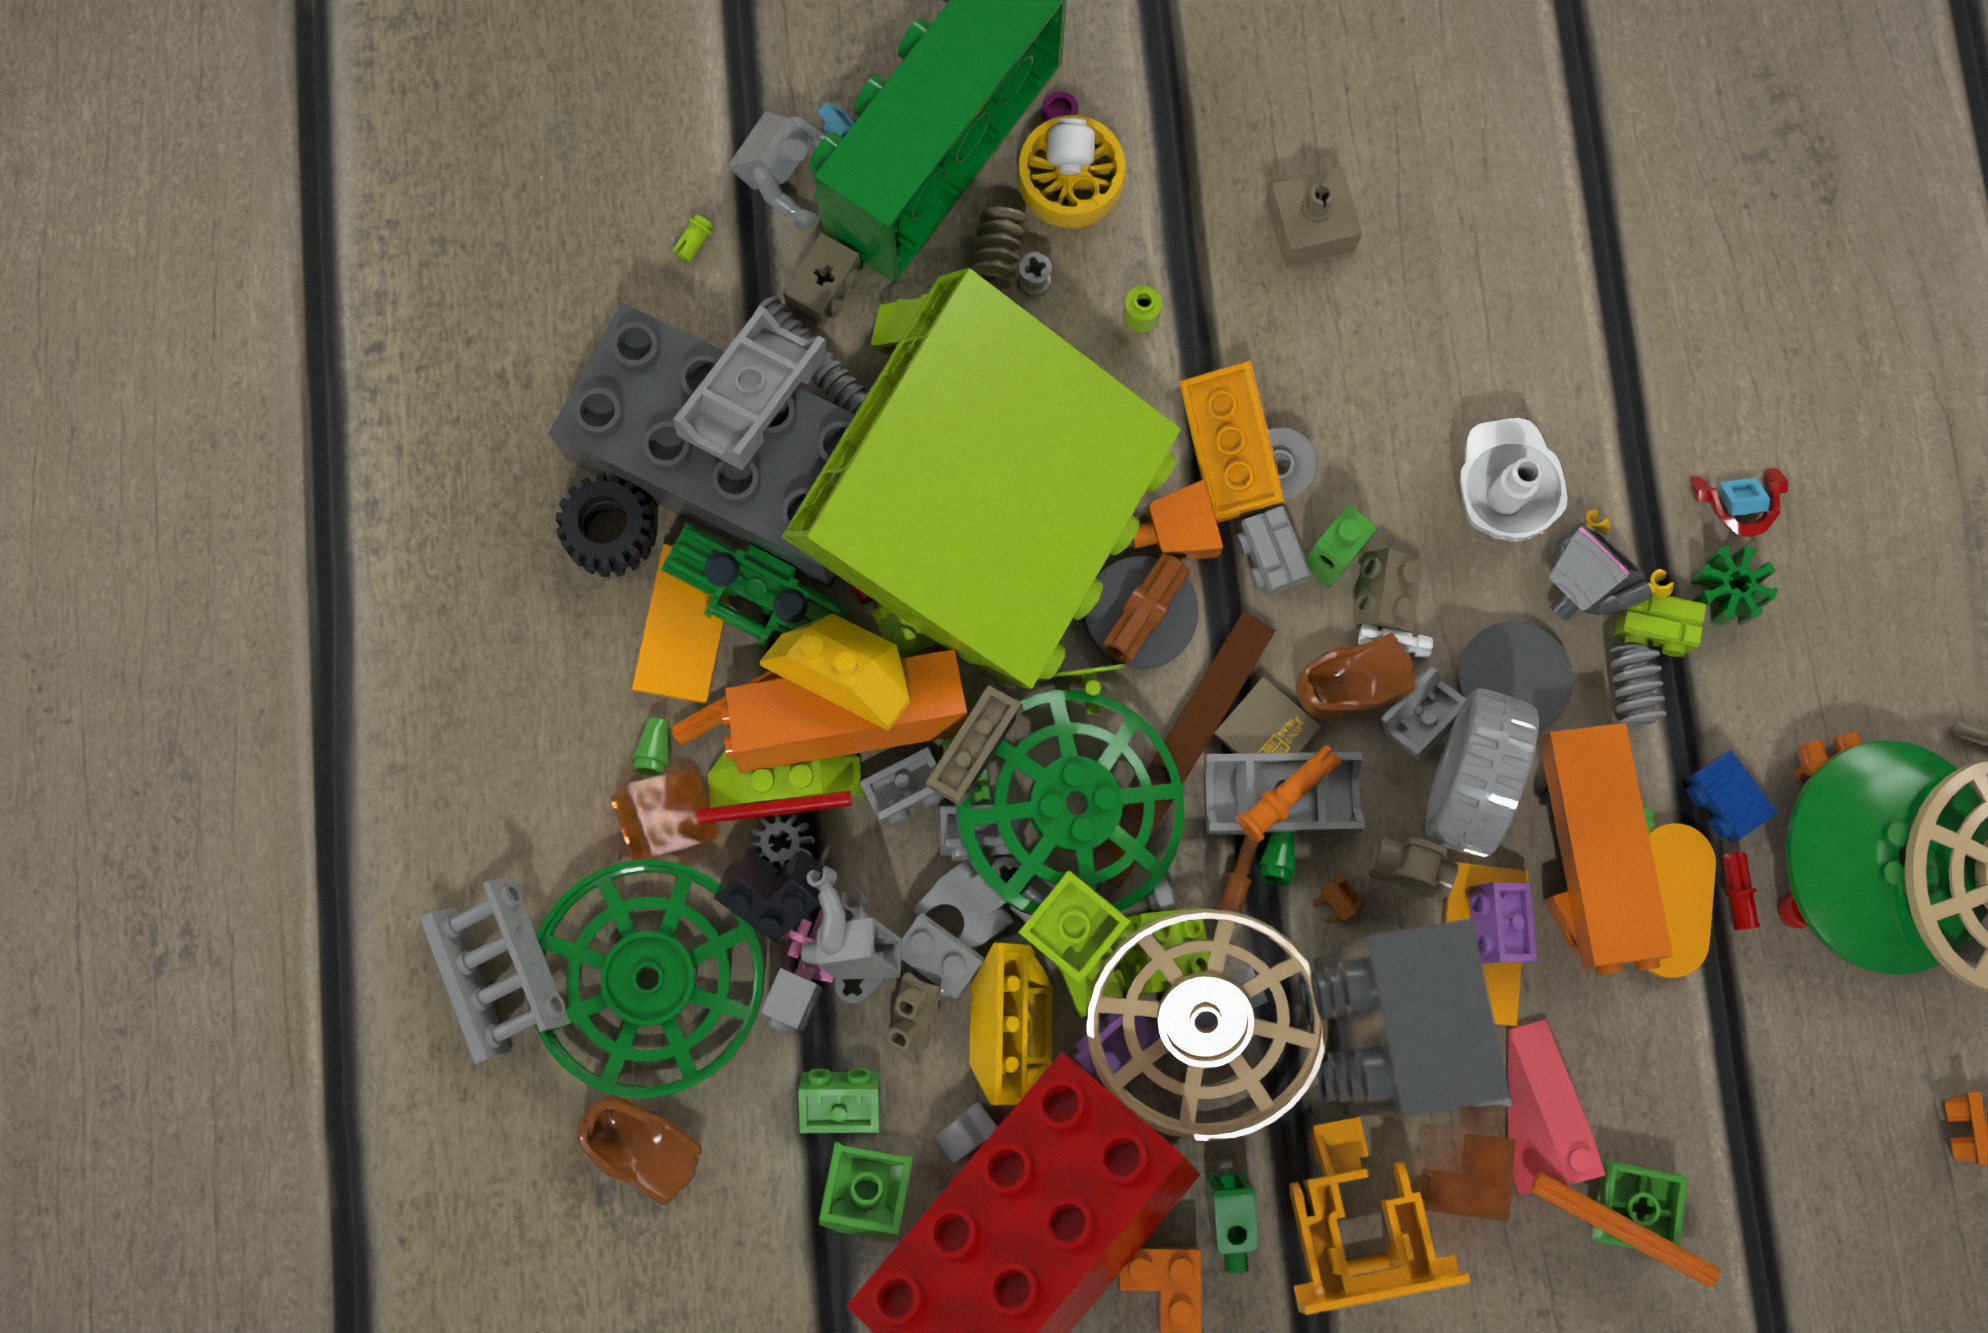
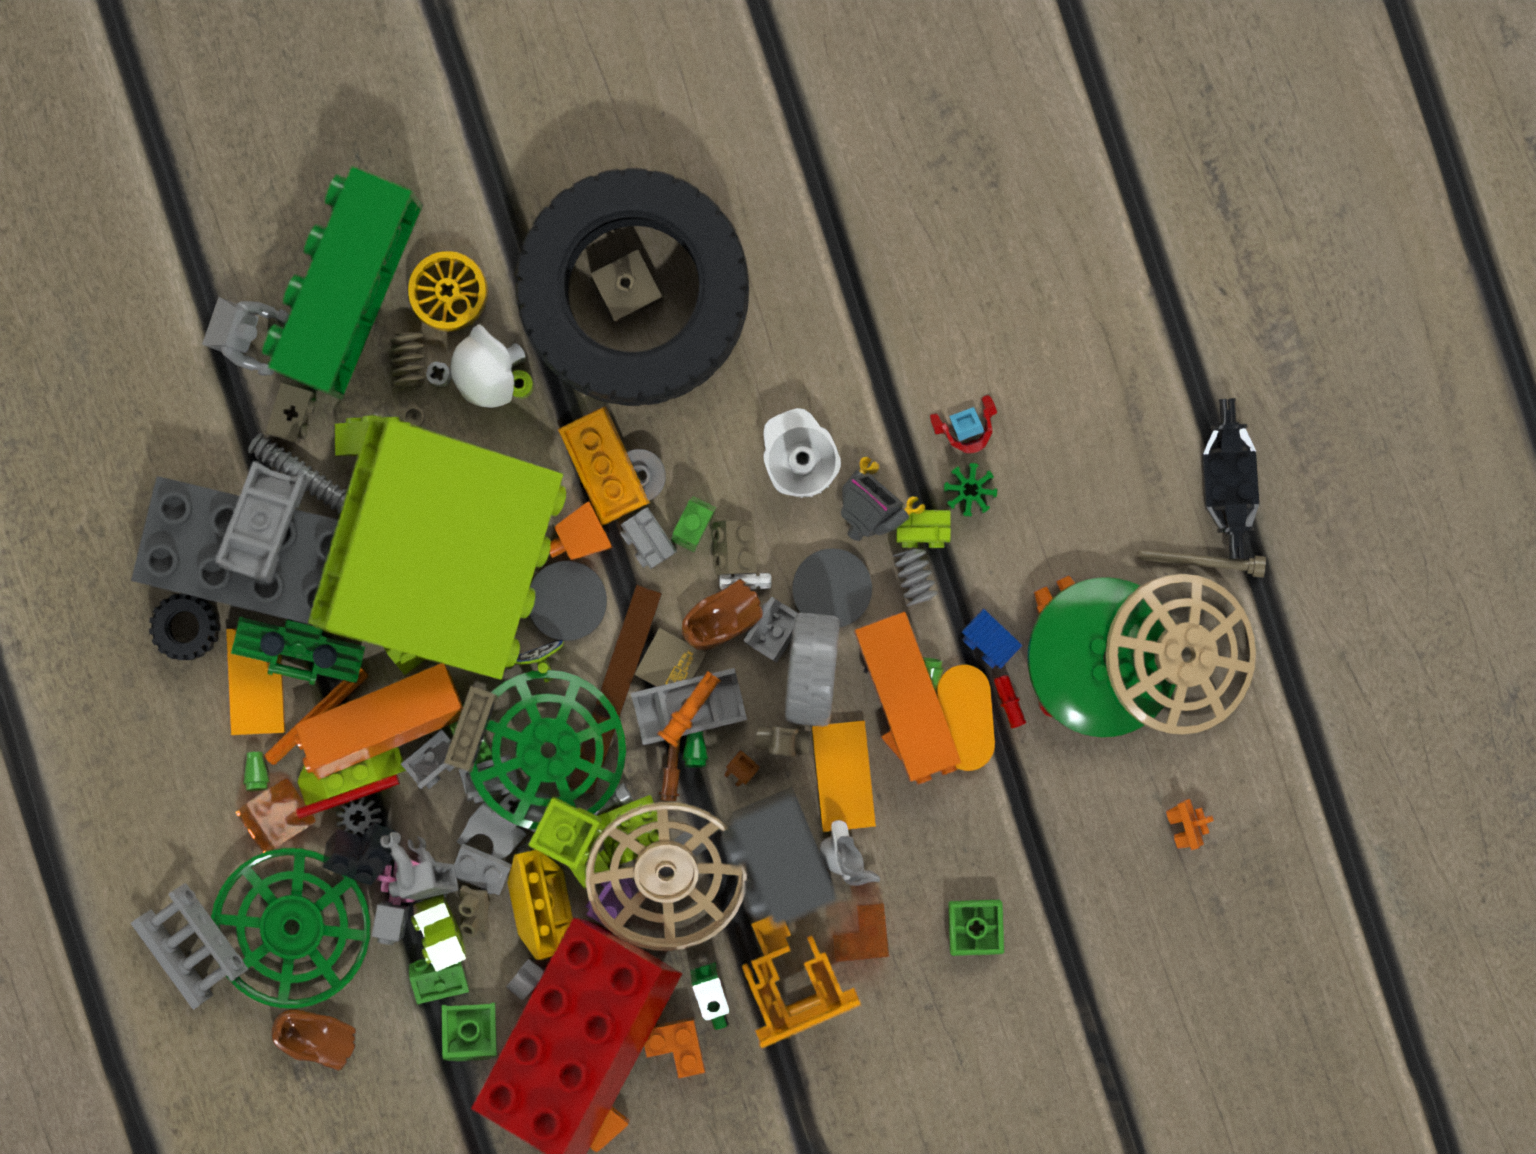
camera: 10 degrees left, 10 degrees up
(693, 238) = (190, 402): lime pin -> none
(835, 119) = (272, 292): medium azure plate -> none
(843, 667) = (371, 693): yellow wedge -> none
(860, 1041) = (441, 933): none -> brick
(1058, 105) = (429, 242): magenta tile -> none
(1070, 145) = (442, 281): white head -> none
(1103, 271) = (484, 367): none -> white piece
(1145, 609) = (568, 602): dark orange piece -> none
(1350, 100) = (613, 202): none -> black tyre
(1503, 922) = (852, 761): medium lavender bracket -> none
(1545, 1113) = (905, 886): coral wedge -> none
(1625, 1230) = (964, 945): orange axle -> none

